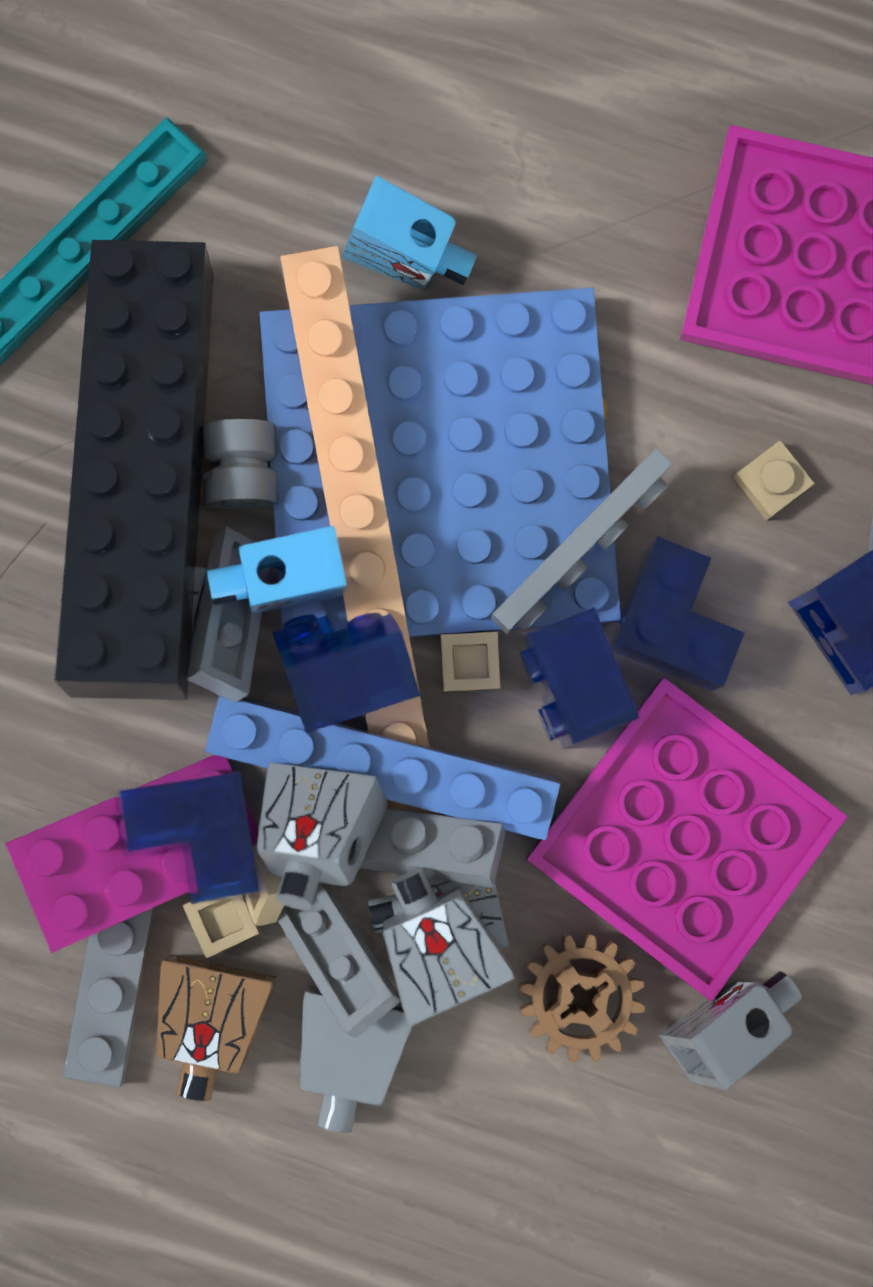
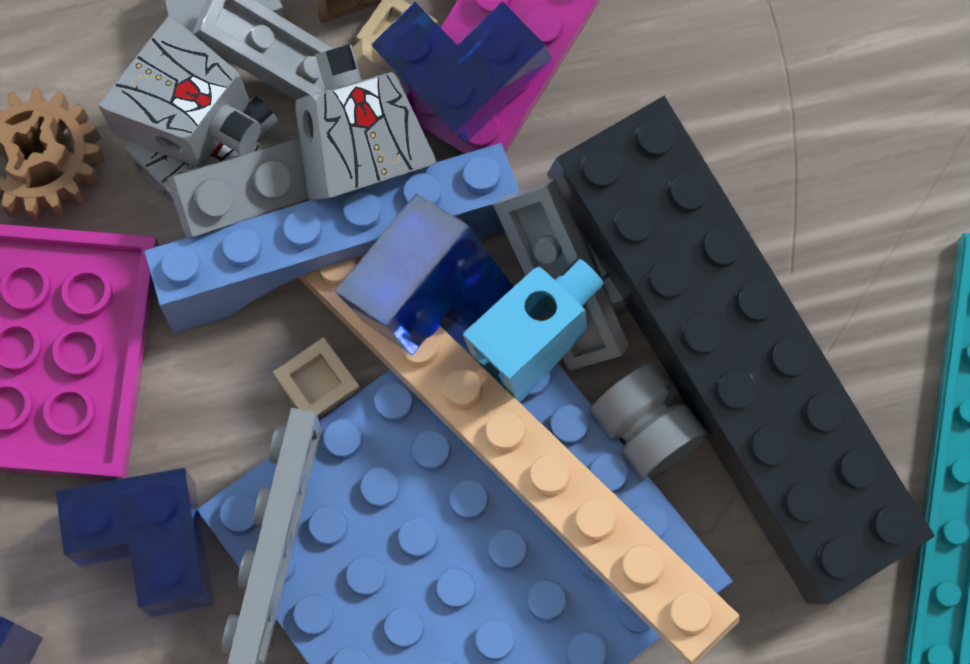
camera: 150 degrees right, 10 degrees down
(579, 679) = (196, 406): clear blue brick -> none

